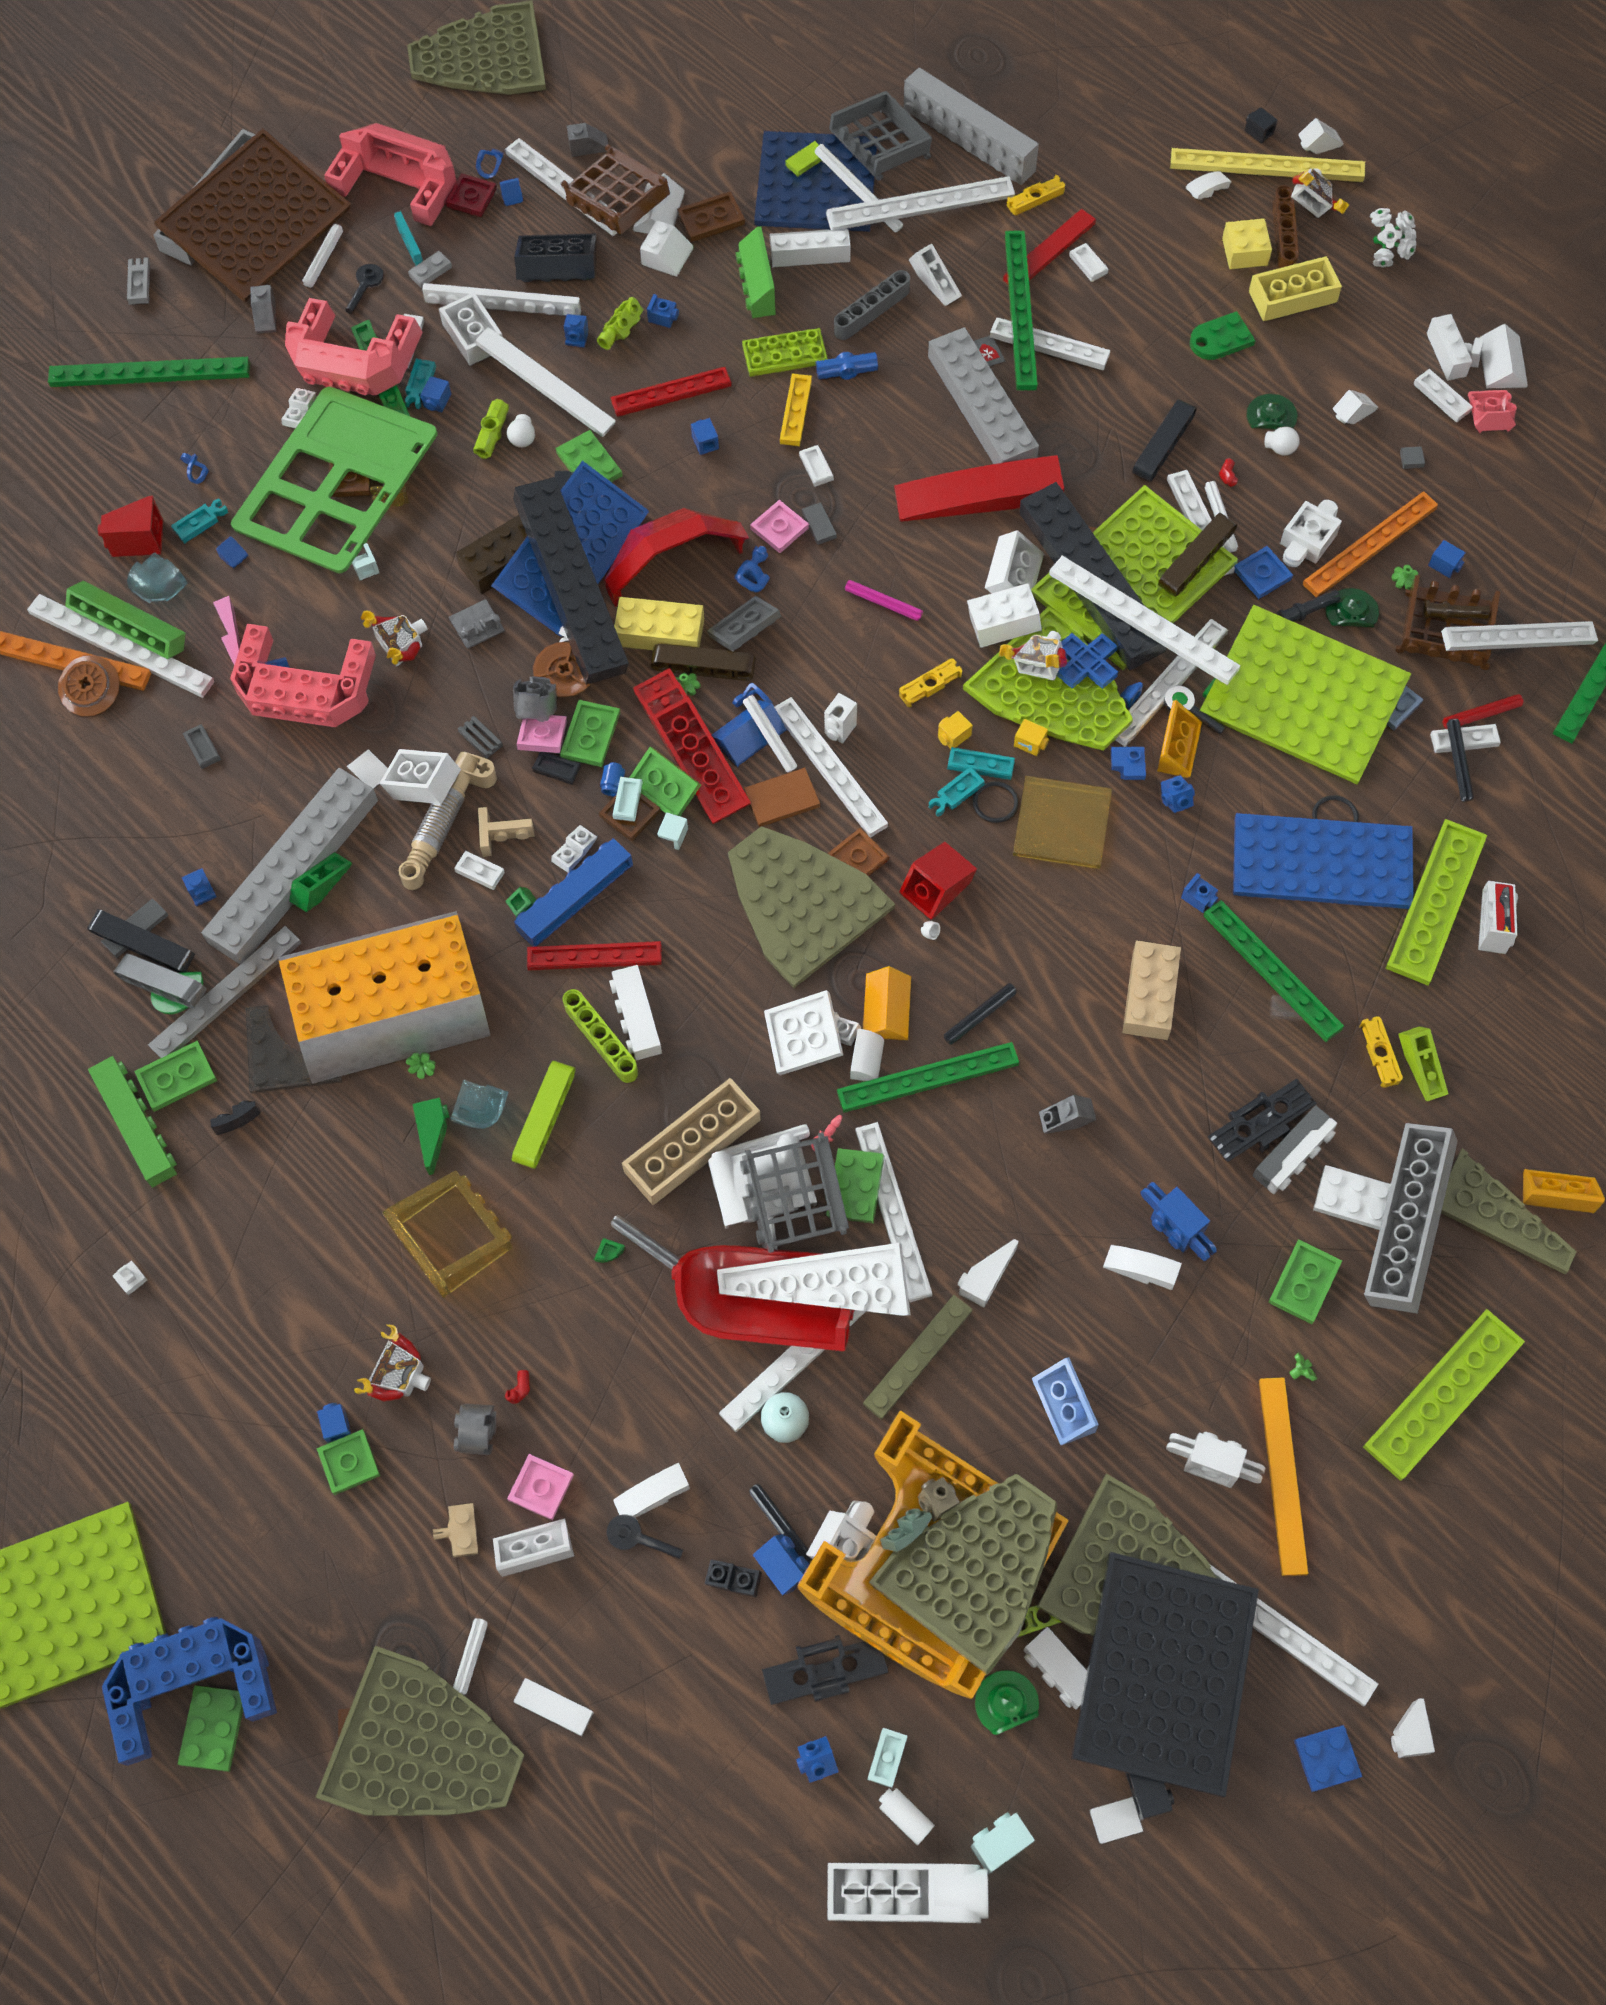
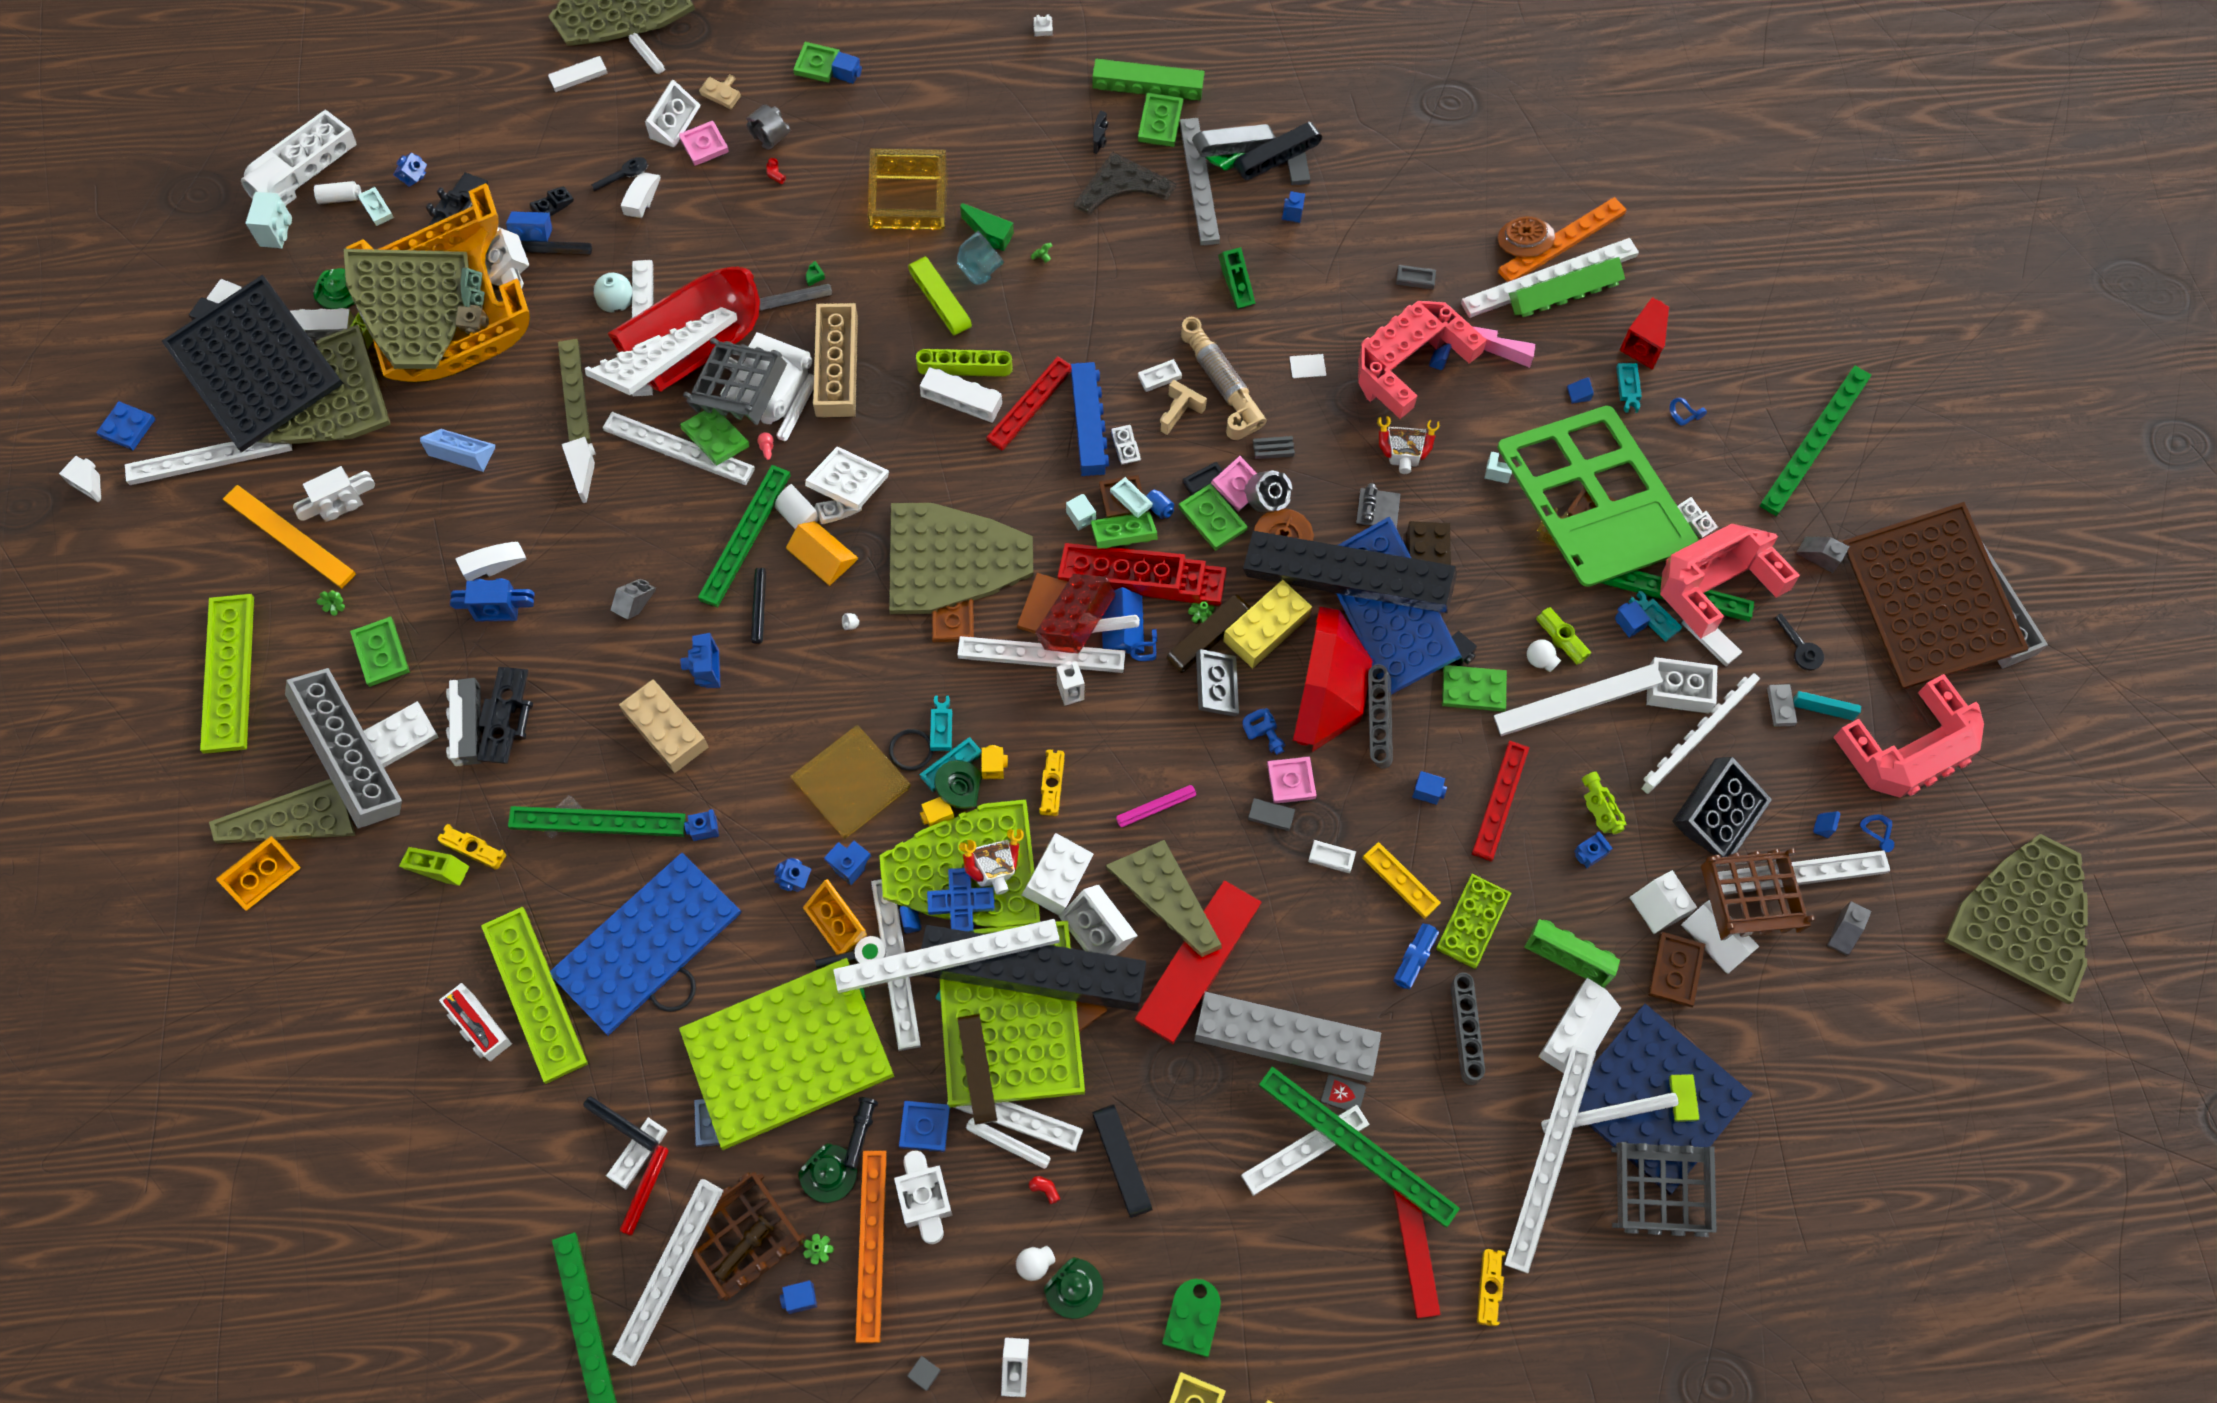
camera: 125 degrees right, 0 degrees up
(138, 281) = (1925, 484): light grey hinge -> none
(155, 579) = (1592, 329): clear light blue brick -> none
(309, 840) = (1267, 270): light grey brick -> none
(322, 255) = (1857, 633): white axle -> none
(388, 1020) = (1147, 232): light orange slope -> none
(396, 1370) = (846, 113): torso -> none
(420, 776) = (1262, 375): white brick -> none
(471, 195) = (1847, 789): dark red plate -> none
(520, 900) = (1112, 388): green slope -> none
(576, 330) = (1621, 766): blue brick -> none
(679, 490) = (1384, 725): none -> dark grey beam
(777, 753) = (1075, 613): none -> clear red brick
(934, 274) = (1459, 1109): white slope -> none
(937, 879) = (881, 655): red slope -> none
(946, 549) = (1163, 888): none -> olive wing
(970, 126) = (1615, 1281): light grey brick -> none
(996, 737) = (958, 784): none -> dark green hat
(1072, 1002) = (703, 661): none -> blue brick
(1088, 262) = (1373, 1269): white tile -> none

